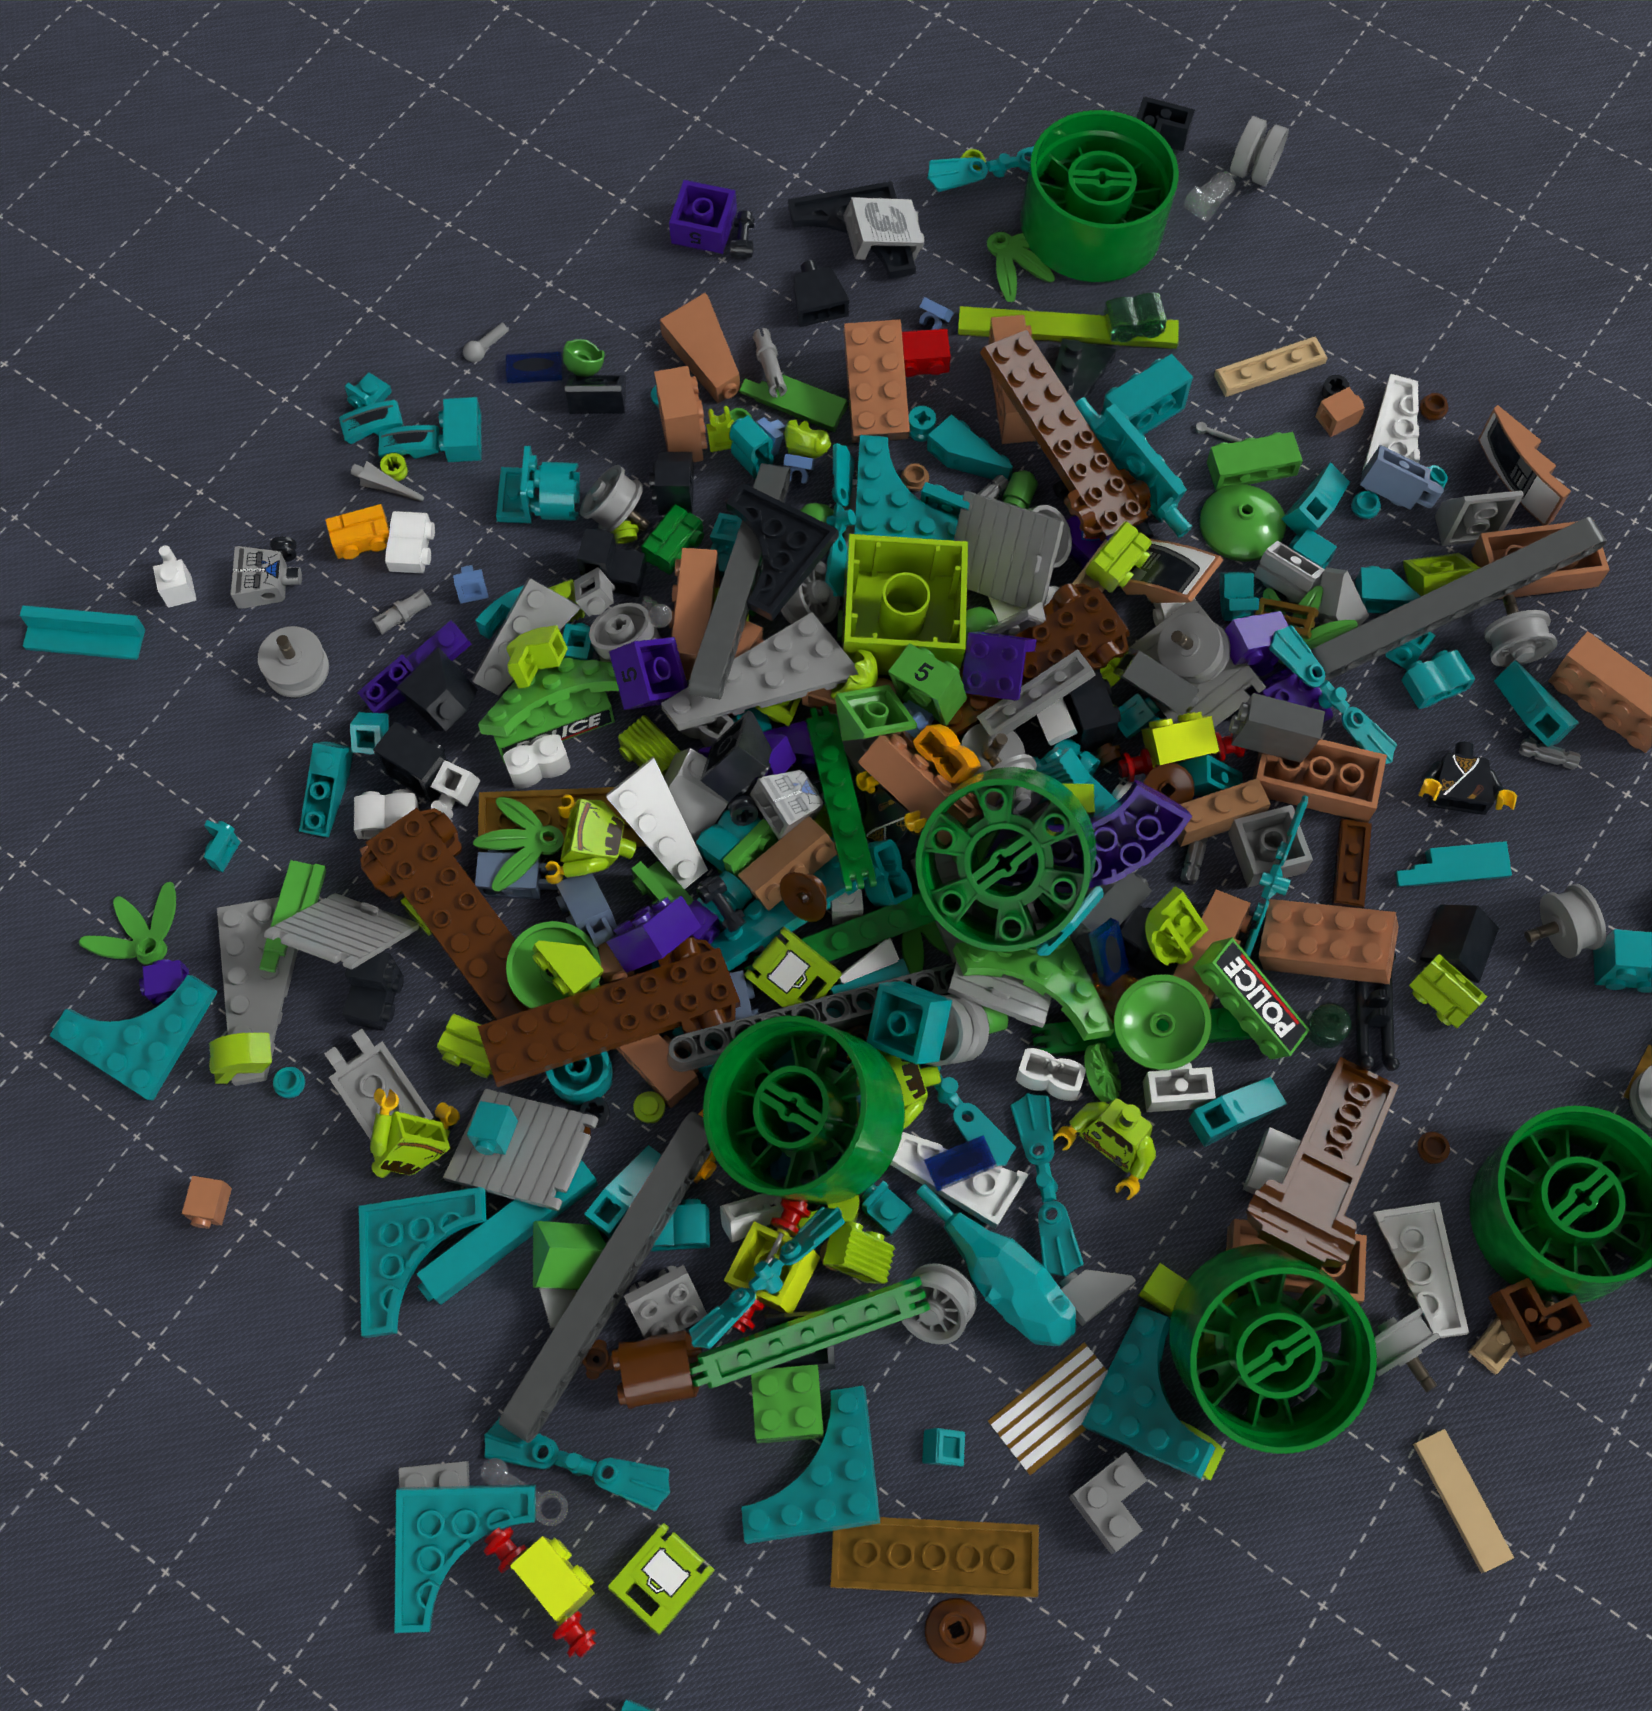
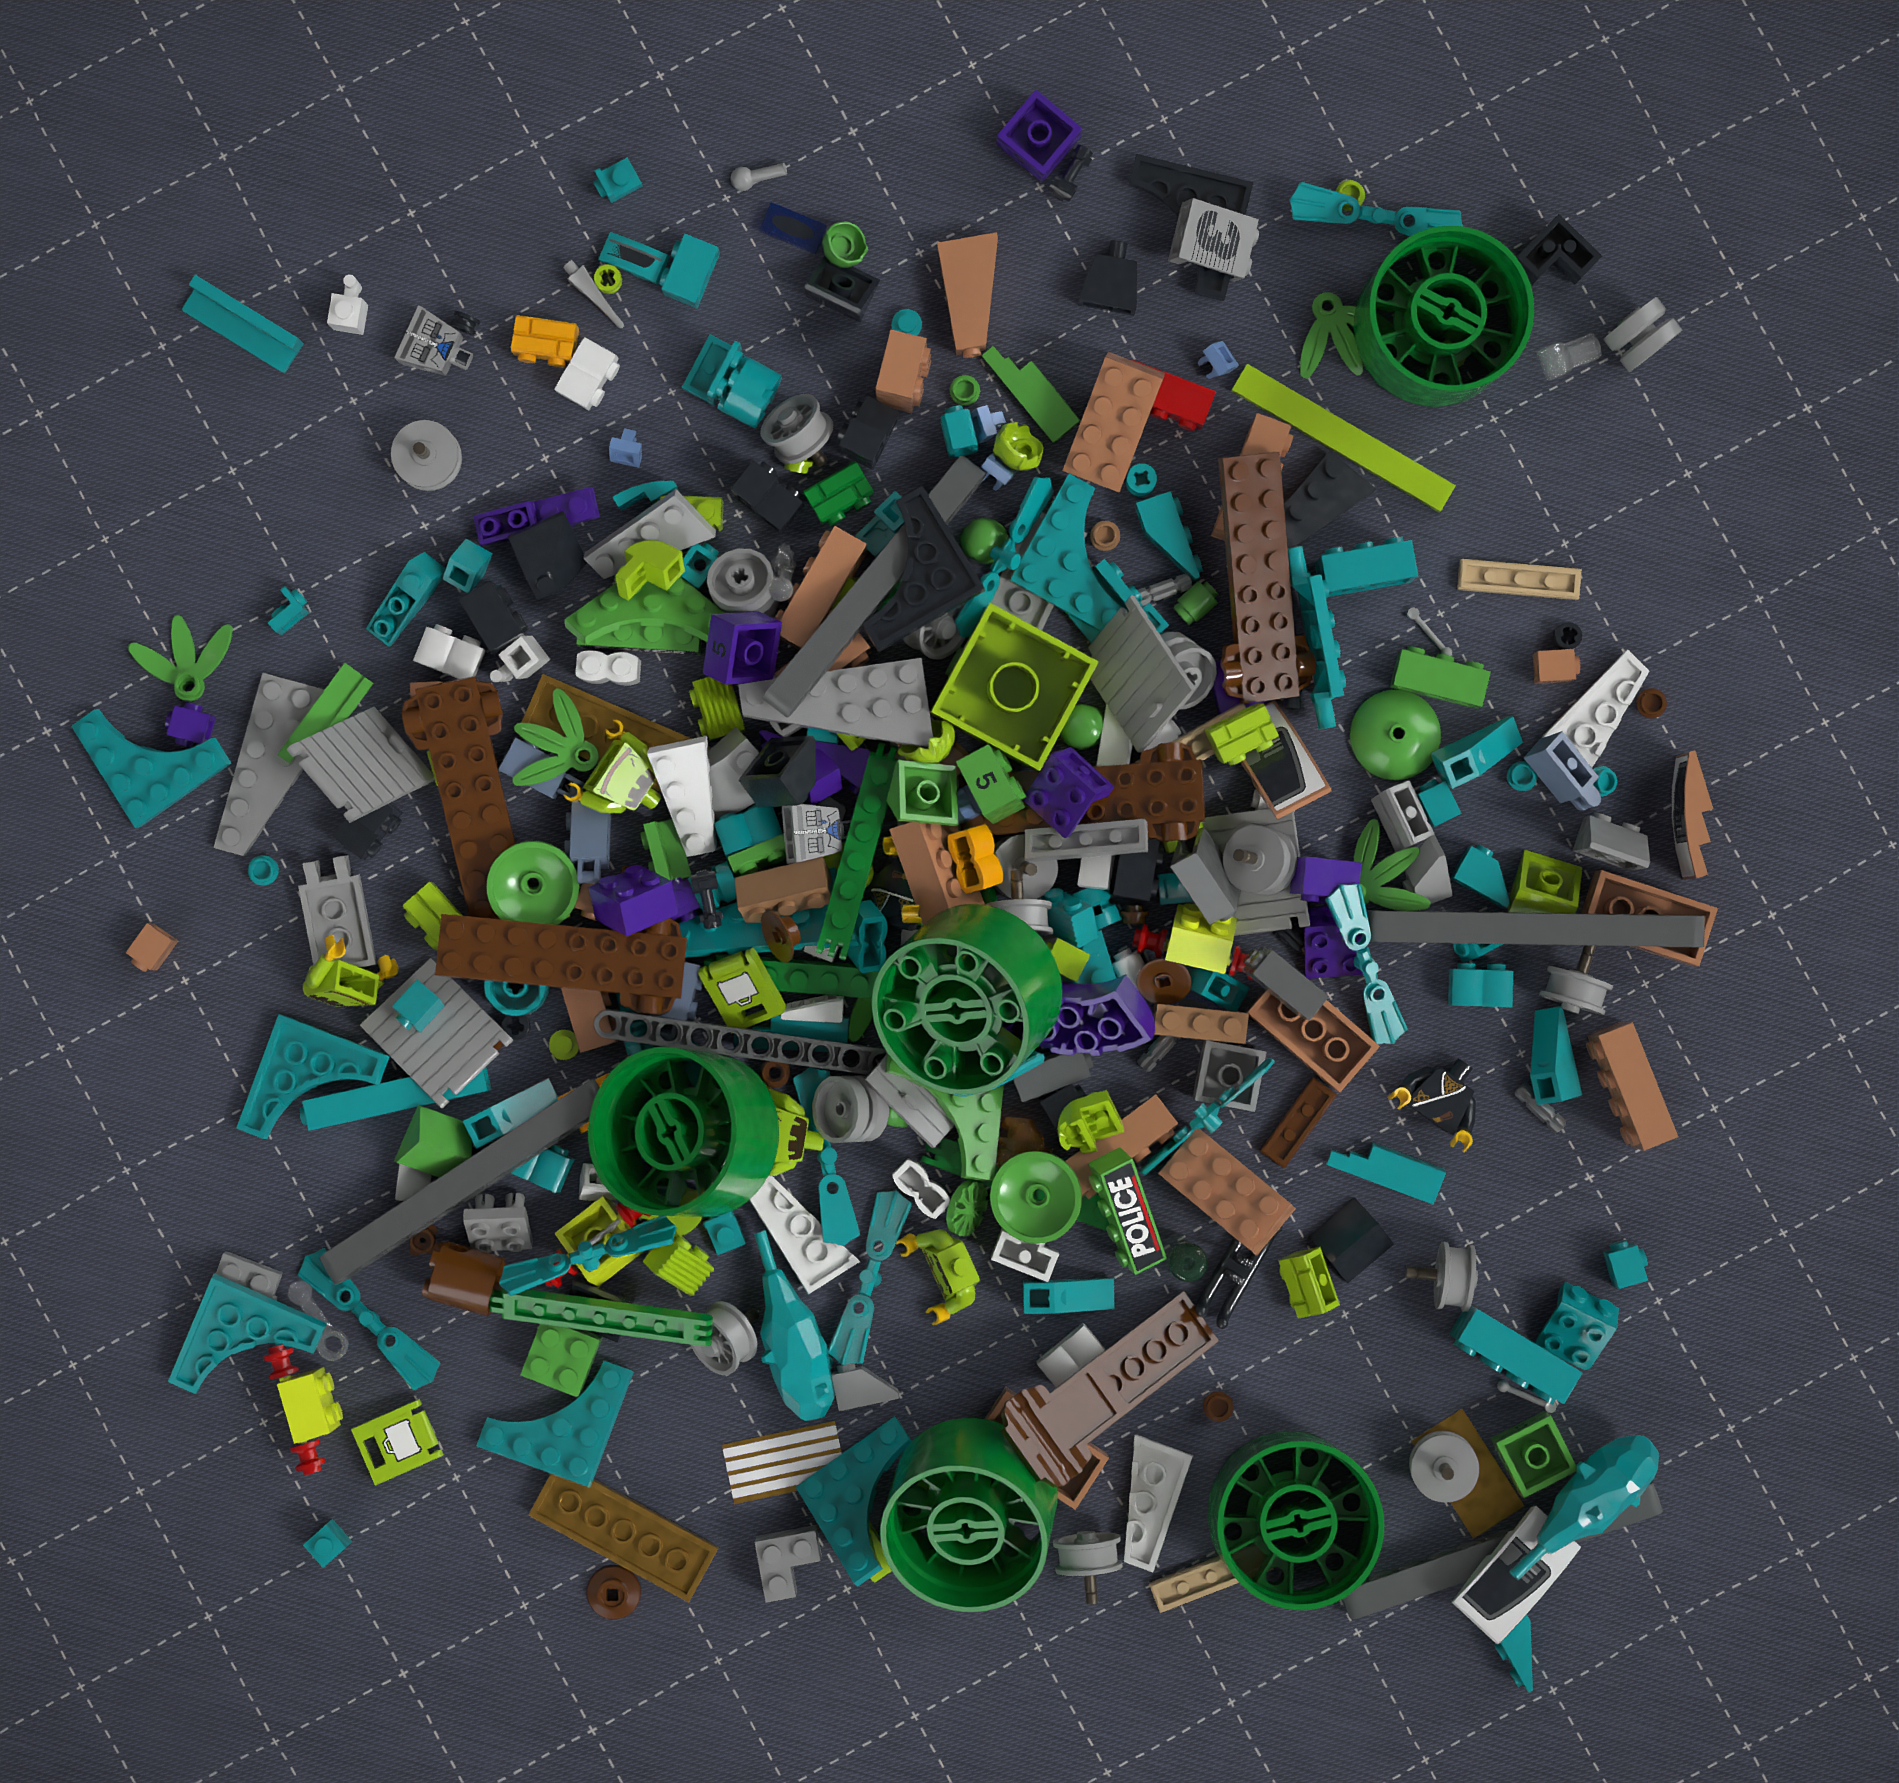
camera: 20 degrees right, 20 degrees up
(239, 1054) = (228, 833): lime brick -> none
(370, 420) = (606, 215): teal slope -> none
(401, 611) = (550, 445): light grey pin -> none
(569, 964) = (546, 896): lime slope -> none
(598, 598) = (732, 531): light grey brick -> none
(719, 430) = (938, 397): lime plate -> none
(749, 814) = (767, 819): black bush -> none
(767, 355) = (1027, 329): light grey pin -> none
(909, 1022) = (814, 1094): teal brick -> none
(943, 1447) = (674, 1449): teal slope -> none
(960, 1163) = (803, 1228): clear blue tile -> none
(1020, 621) = (1110, 751): light grey slope -> none
(1109, 952) = (1023, 1112): clear blue tile -> none
(1135, 317) = (1409, 468): clear green brick -> none
(1163, 1289) = (921, 1413): lime brick -> none
(1237, 595) = (1342, 814): teal brick -> none
(1308, 623) = (1385, 880): pearl gold tile -> none
(1463, 1501) = (1072, 1694): tan tile -> none
(1530, 1323) = (1208, 1597): reddish brown brick -> none

